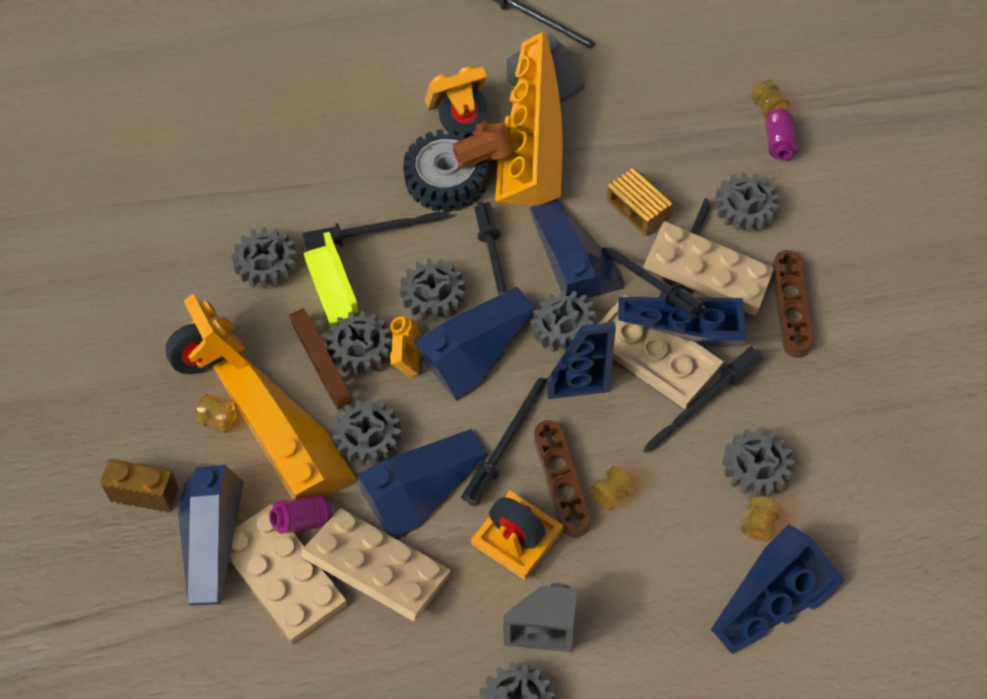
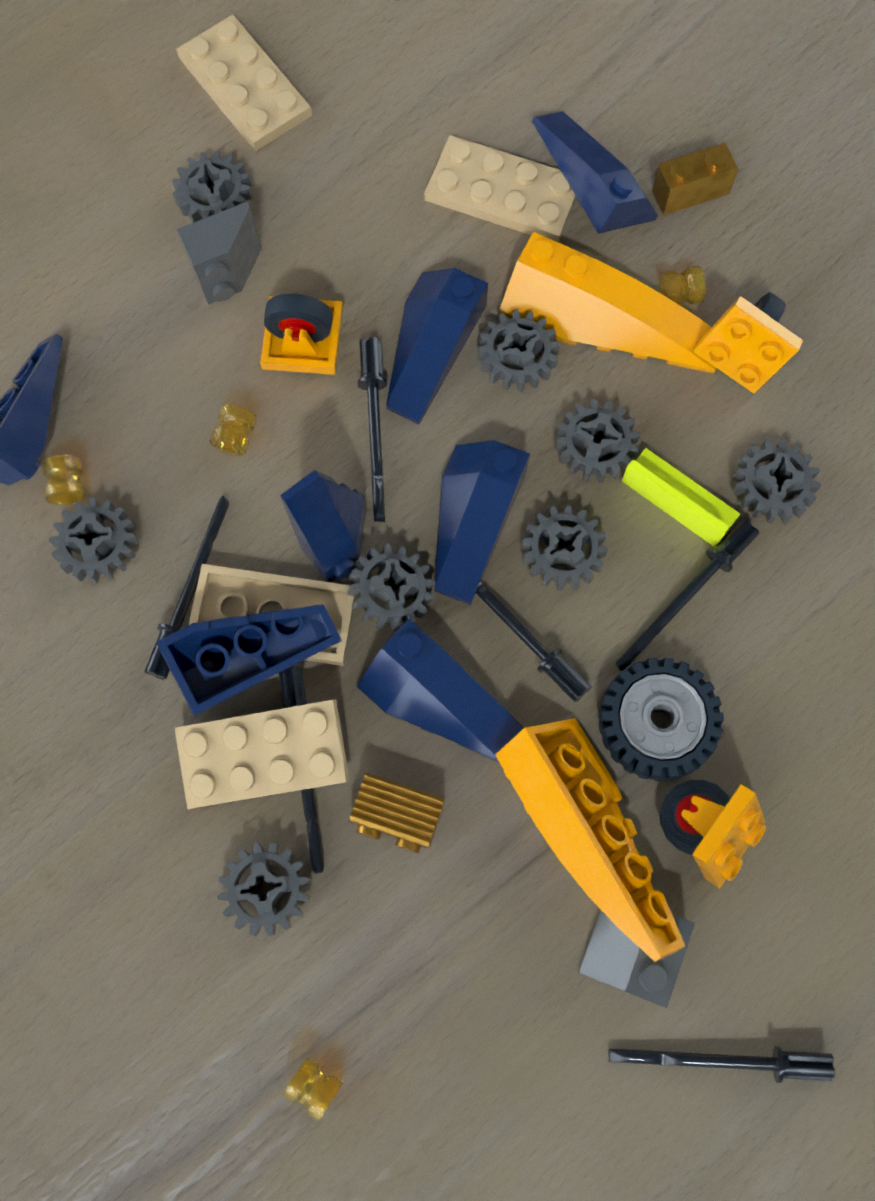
camera: 150 degrees right, 15 degrees up
(300, 514) = (517, 228): magenta head -> none
(320, 359) = (647, 412): reddish brown beam -> none
(376, 564) = (417, 233): tan plate -> none
(404, 350) = (557, 480): light orange plate -> none
(487, 142) = (622, 767): dark orange piece -> none
(562, 477) = (294, 419): reddish brown beam -> none
(674, 295) = (266, 659): black piece -> none
(781, 134) = (270, 1034): magenta head -> none
(792, 303) = (141, 777): reddish brown beam -> none

